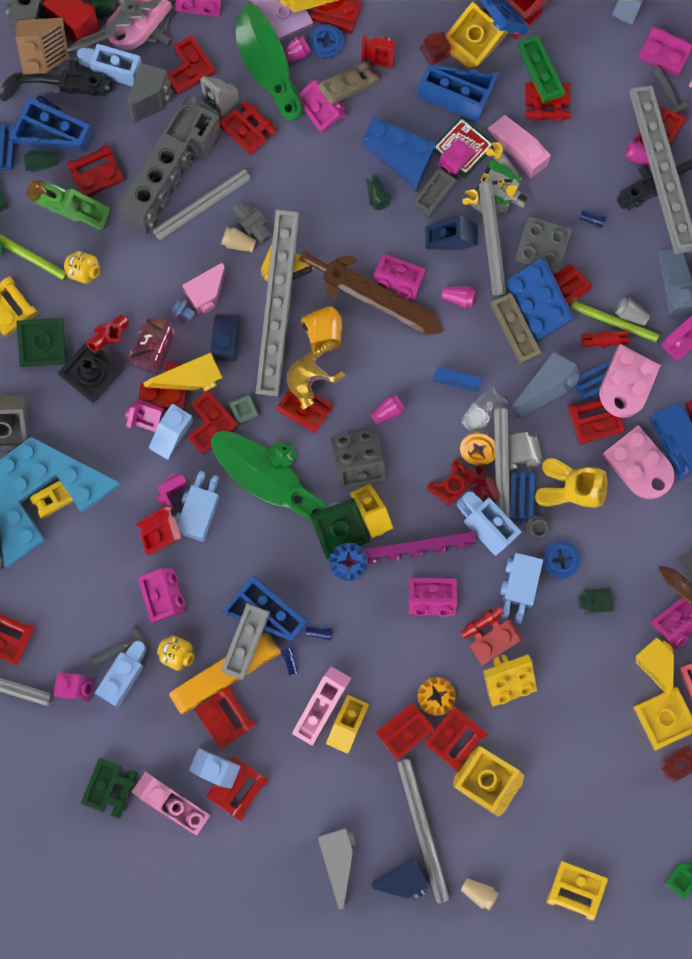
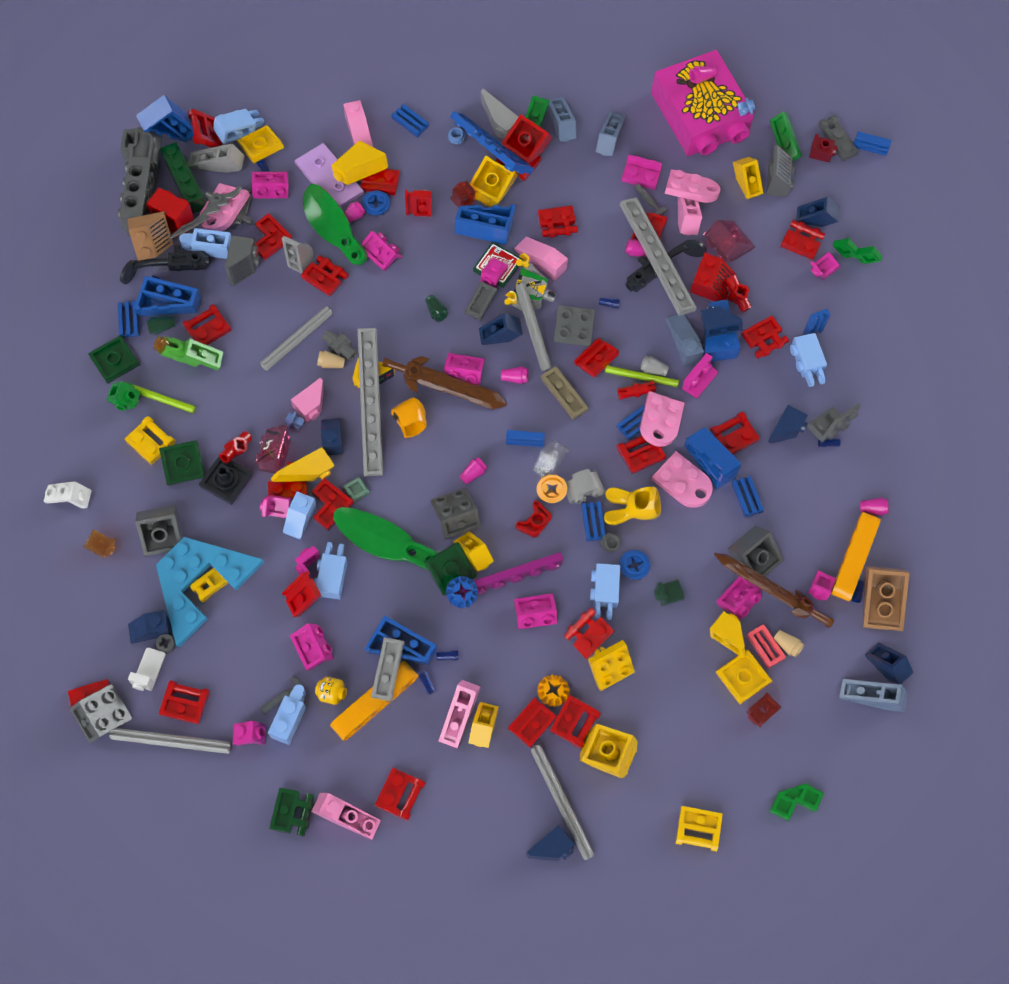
camera: 10 degrees left, 10 degrees down
(82, 267) = (206, 399): yellow head -> none
(188, 134) = (266, 305): dark grey brick -> none
(214, 768) = (378, 778): light blue slope -> none
(218, 722) = (375, 742): red plate -> none
(282, 454) = (393, 519): green plant -> none
(305, 372) = (403, 449): pearl gold piece -> none
(309, 418) = (405, 480): red plate -> none
(338, 856) = (494, 836): light grey slope -> none
(348, 83) = (399, 230): dark tan plate -> none
(400, 150) = (448, 273): blue wedge -> none
(480, 893) = (620, 845): tan cone -> none
(485, 487) = (563, 519): dark red plate -> none
(488, 522) = (571, 543): light blue hinge -> none
(502, 459) = (573, 498): light grey axle -> none
(540, 69) = (547, 198): green hinge -> none
(540, 299) = (579, 367): blue plate -> none
(549, 383) = (598, 430): sand blue slope -> none

